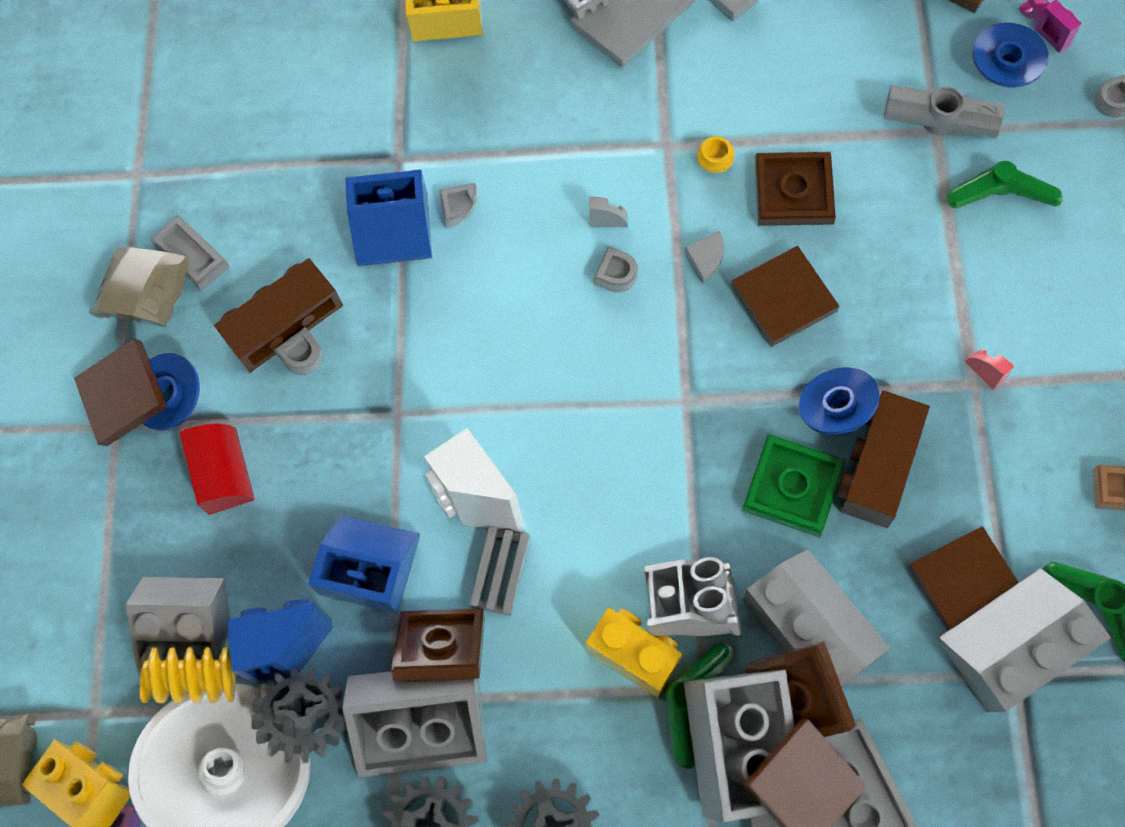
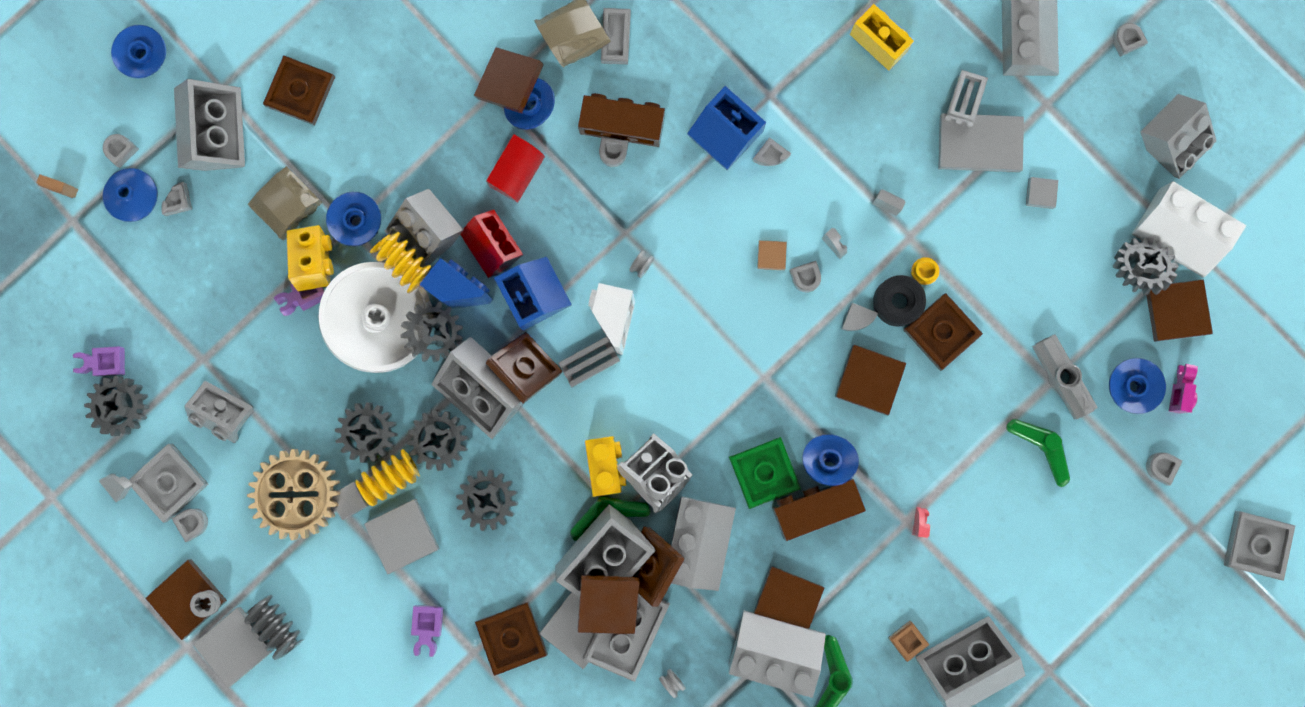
camera: 50 degrees right, 15 degrees up
(71, 690) = (344, 210): none -> blue dish
(267, 563) = (490, 243): none -> red brick
(446, 421) = (641, 264): none -> light grey bush
(562, 286) = (771, 255): none -> medium nougat tile
(613, 131) = (889, 202): none -> light grey tile
(729, 181) = (910, 289): none -> black tyre
(963, 796) = (672, 683): none -> light grey bush

